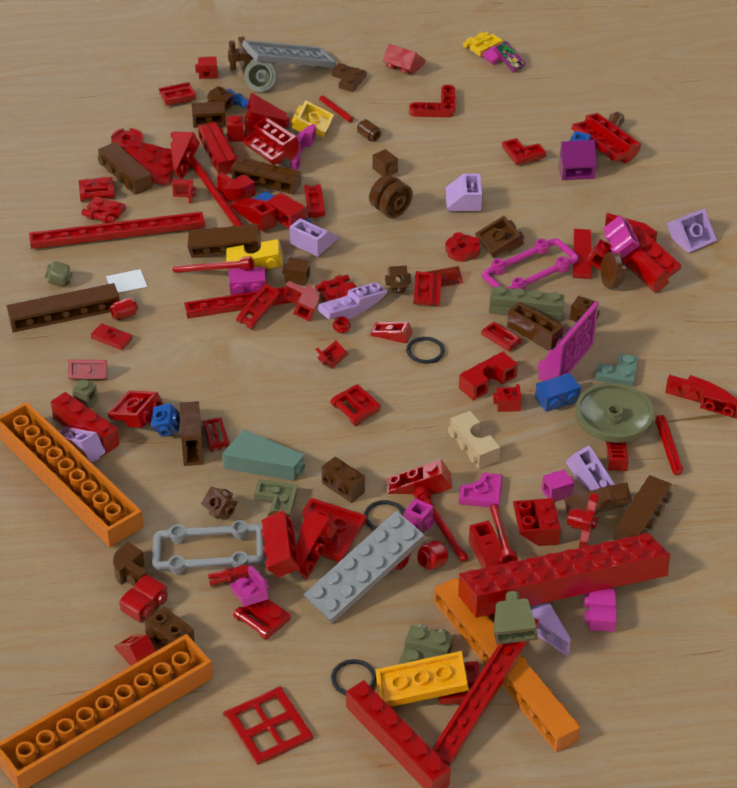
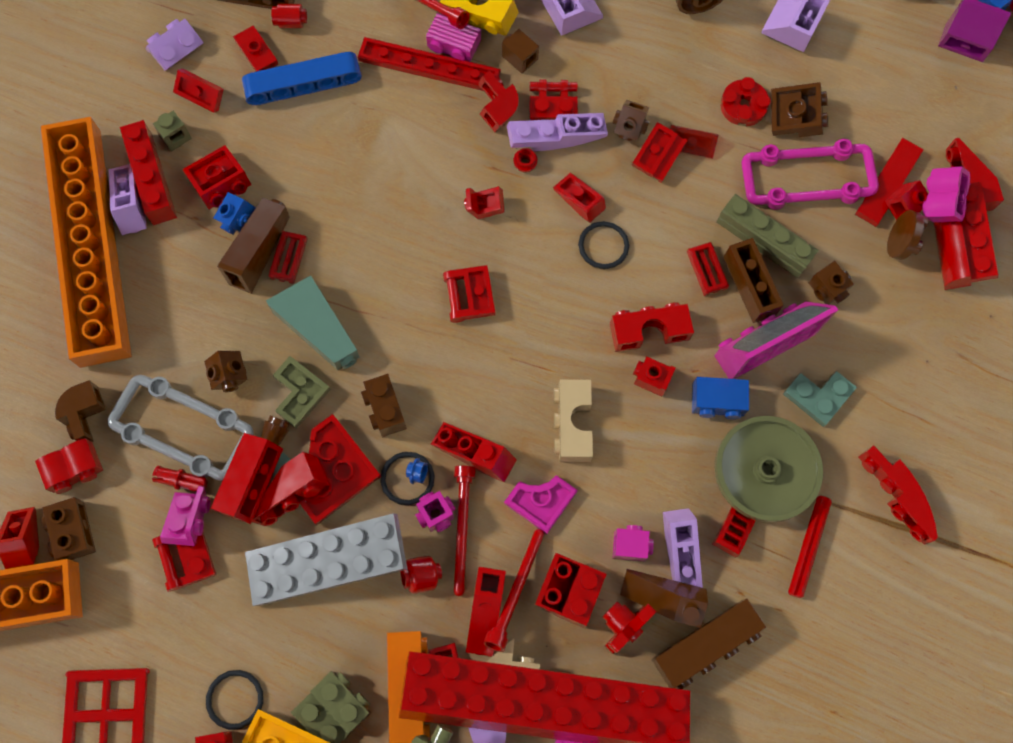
camera: 25 degrees right, 30 degrees up
(51, 351) = (173, 44): none -> lavender bracket
(156, 338) = (301, 78): none -> blue beam
(258, 306) = (442, 86): red plate -> none
(390, 504) = (416, 471): none -> blue plate

